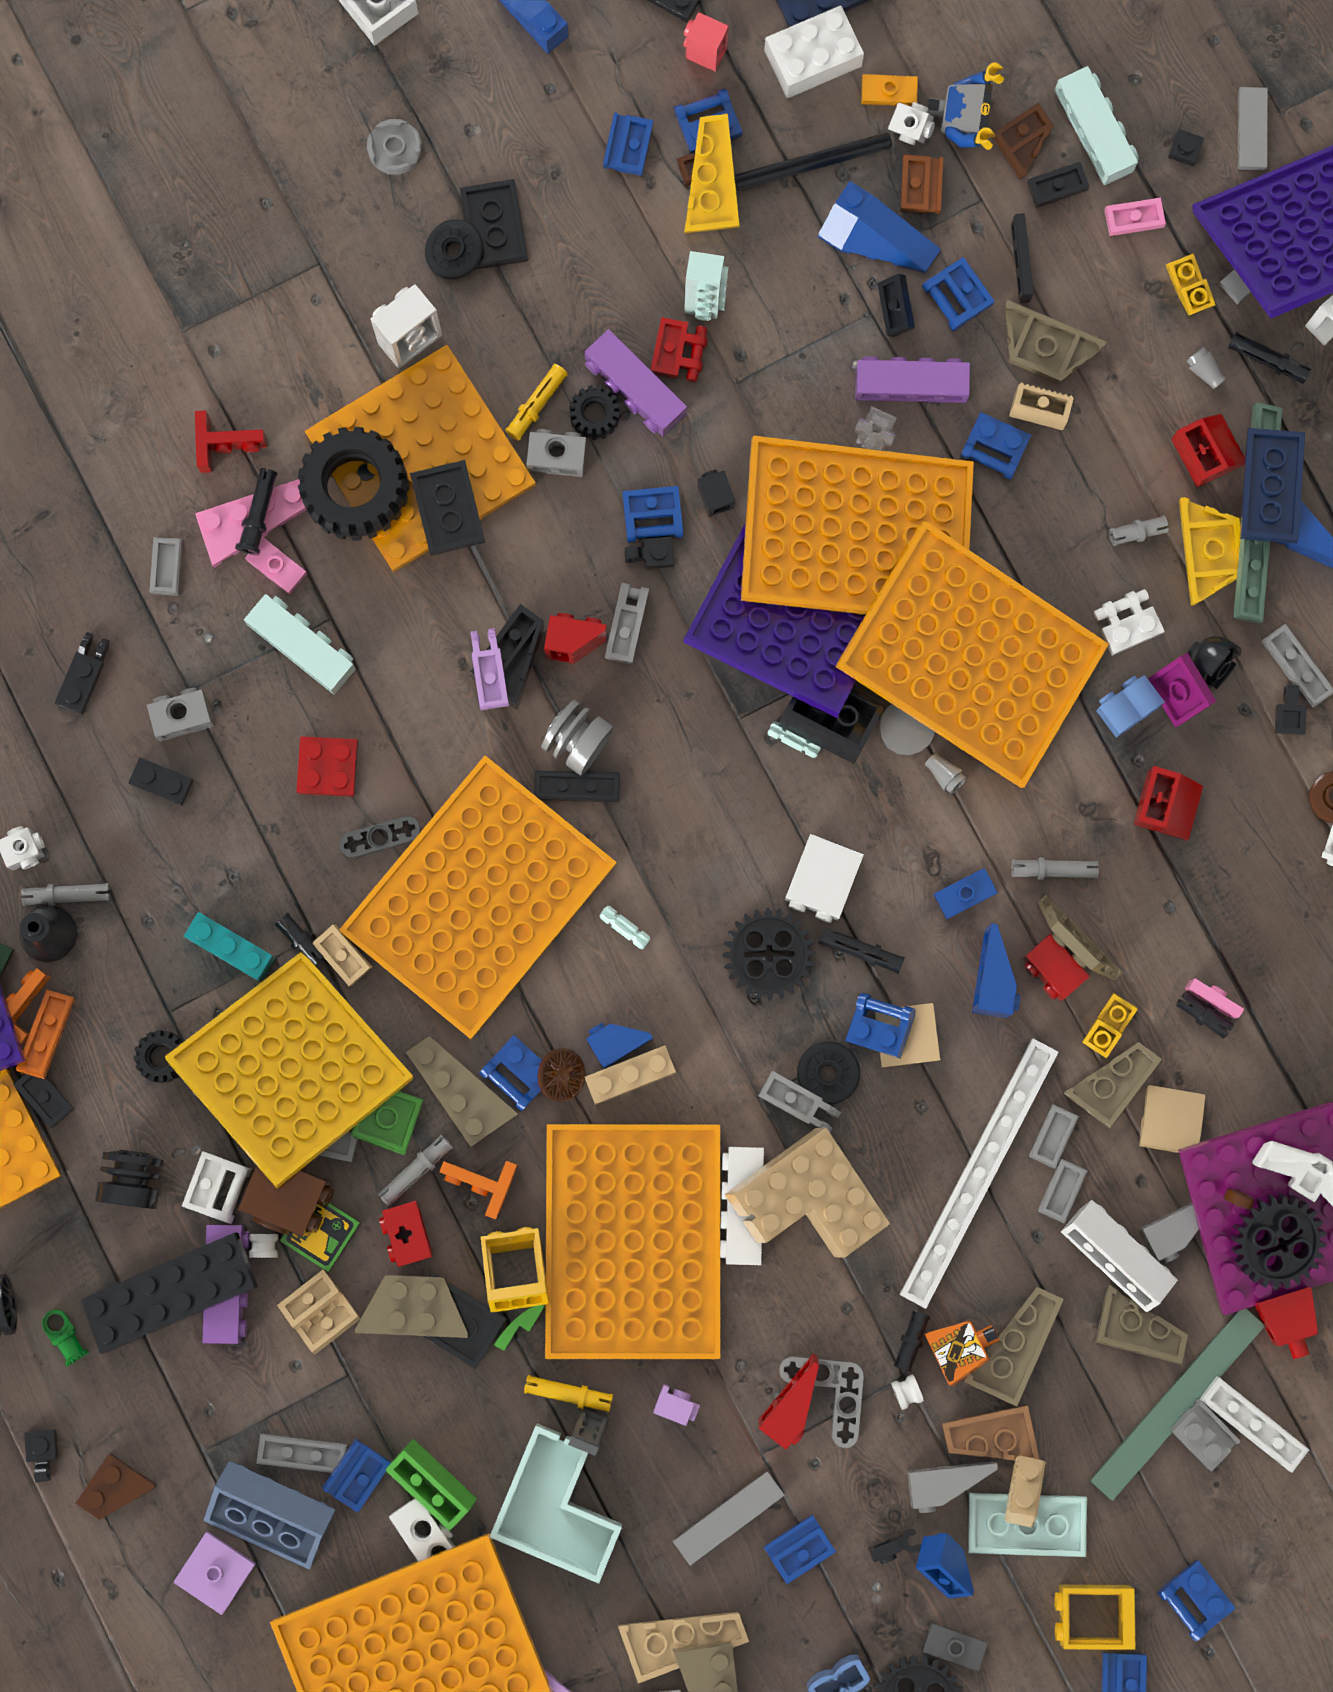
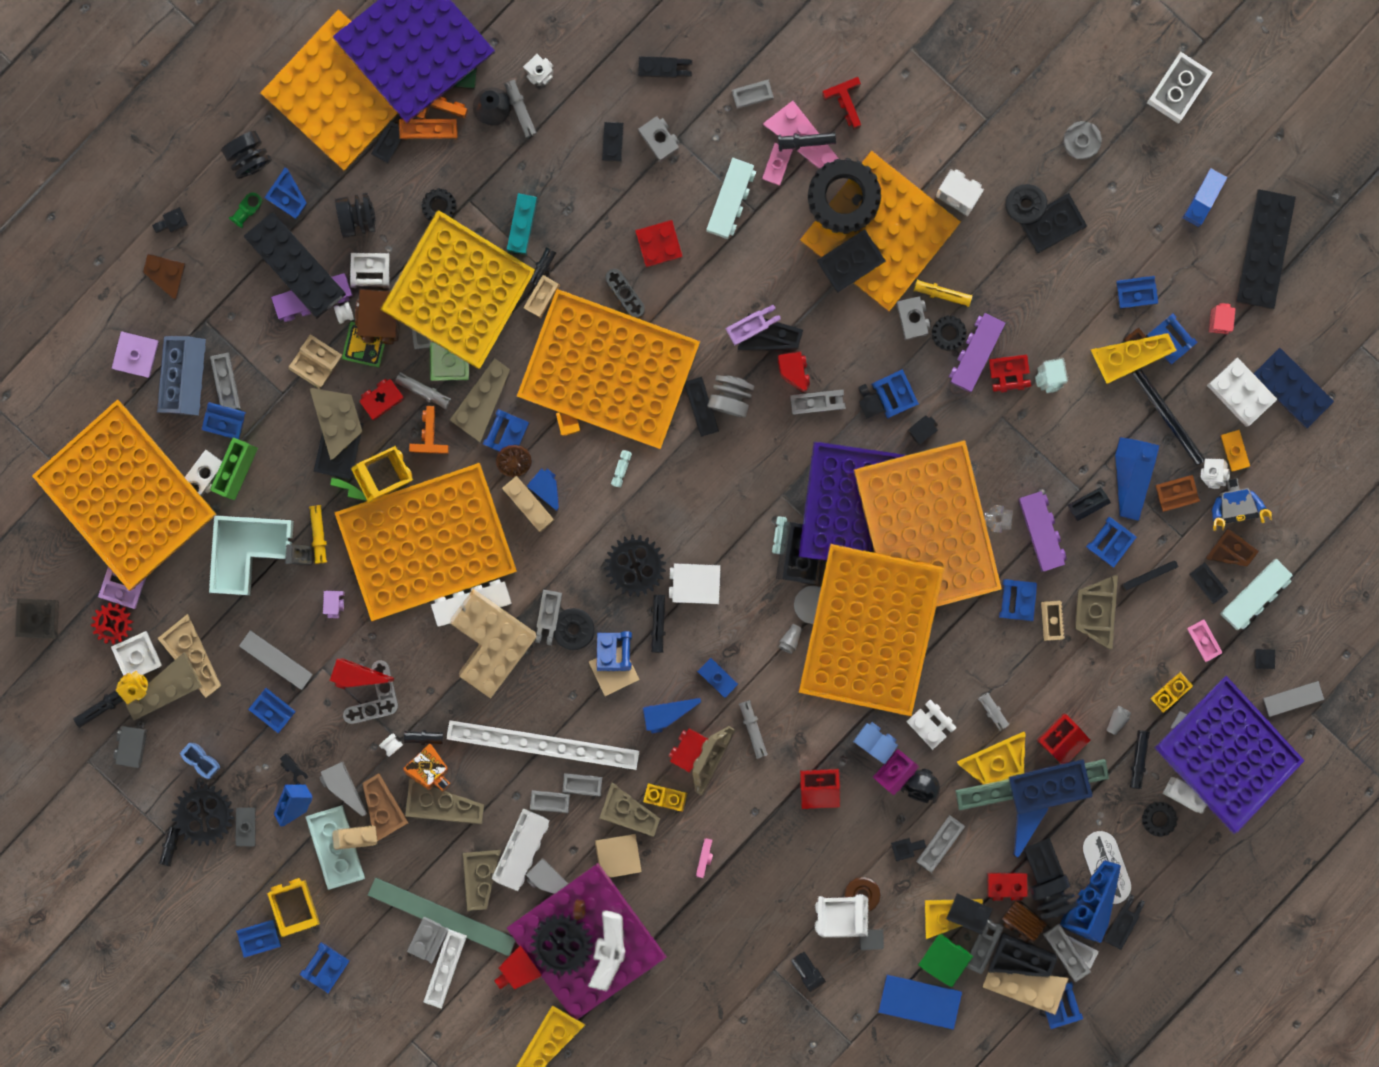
camera: 75 degrees right, 5 degrees up
(65, 1270) = (286, 195): none -> blue wing
(536, 981) = (567, 424): none -> light orange panel
(1204, 1014) = (692, 855): black pin -> none

